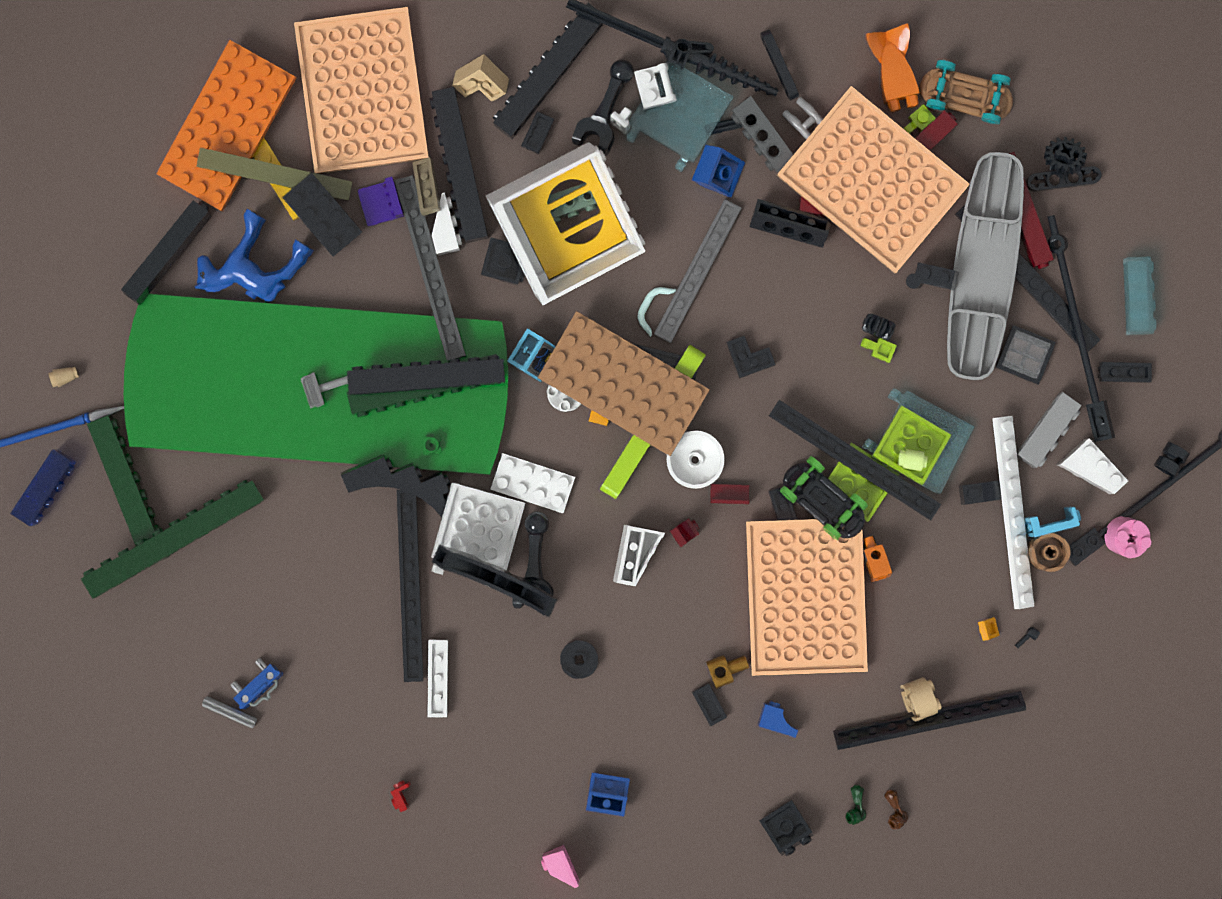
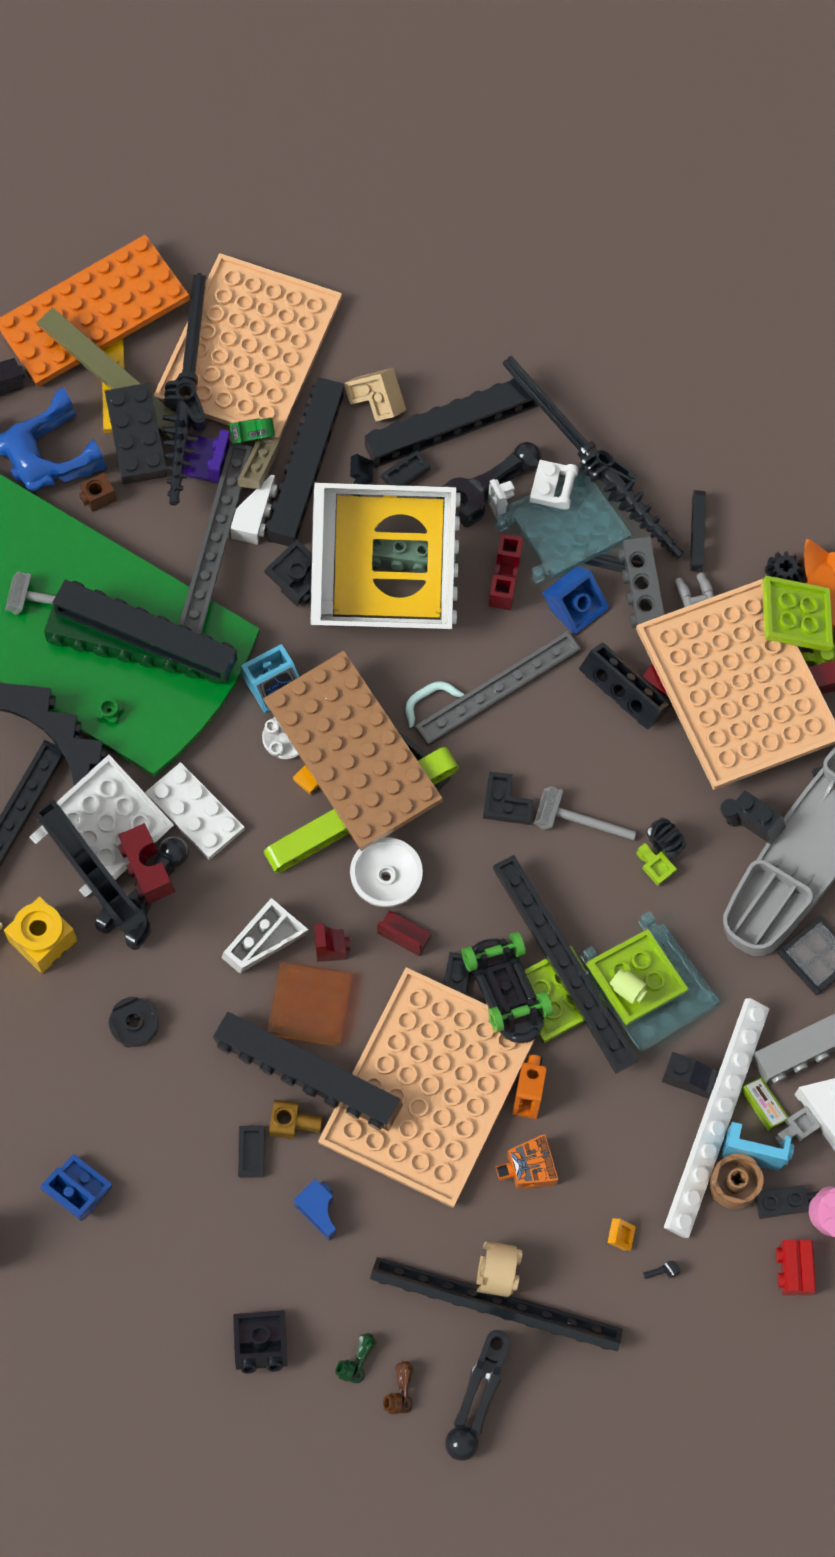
camera: 25 degrees right, 20 degrees down
(319, 266) = (101, 484): none -> reddish brown brick
(351, 173) = (187, 408): none -> black piece
(406, 163) = (251, 429): none -> green leg
(480, 635) = (40, 934): none -> yellow piece
(506, 152) = (361, 470): none -> black plate
(512, 539) = (152, 880): none -> dark red arch
(656, 178) = (505, 572): none -> dark red arch
(692, 580) = (310, 1004): none -> clear orange plate
(719, 633) = (307, 1071): none -> black brick
(783, 346) = (550, 808): none -> light grey piece
(852, 60) = (789, 564): none -> black gear
(890, 103) = (797, 613): none -> lime plate
(902, 614) = (529, 1165): none -> torso
(948, 766) = (463, 1441): none -> black piece
(1040, 483) = (764, 1104): none -> slope
(1072, 487) = (800, 1125): none -> light grey plate
(1116, 588) = (797, 1267): none -> red brick

